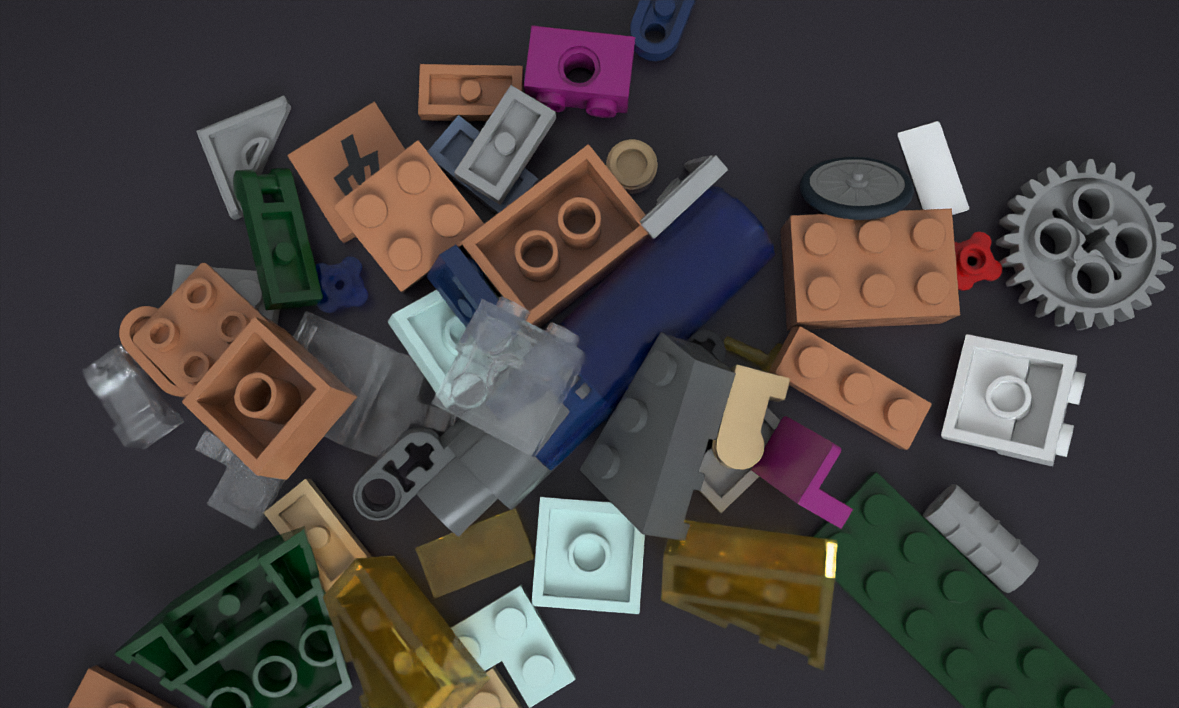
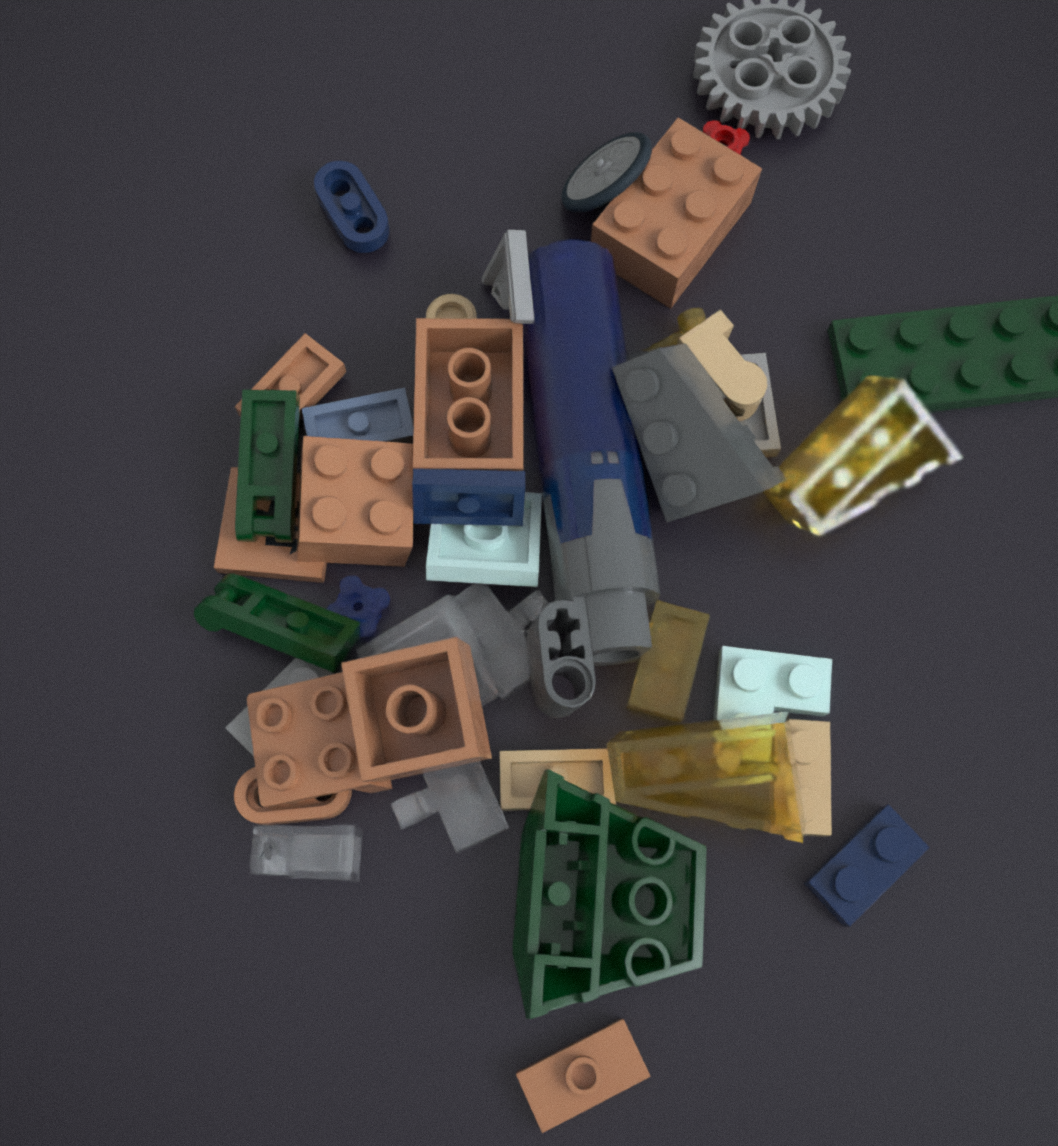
camera: 60 degrees left, 10 degrees down
(242, 144) = (168, 603): light grey tile -> none
(388, 127) = (267, 464): none -> dark green plate
(505, 145) = (360, 384): light grey plate -> none
(510, 374) = (559, 494): clear plate -> none
(558, 51) = (355, 271): magenta brick -> none
(587, 557) = (737, 573): light aqua plate -> none
(797, 464) = (799, 350): magenta panel -> none
(850, 388) = (755, 288): nougat plate -> none
(933, 168) = (615, 119): white sticker -> none
(981, 538) = (938, 285): light grey axle -> none
(1013, 399) = (850, 188): white plate -> none

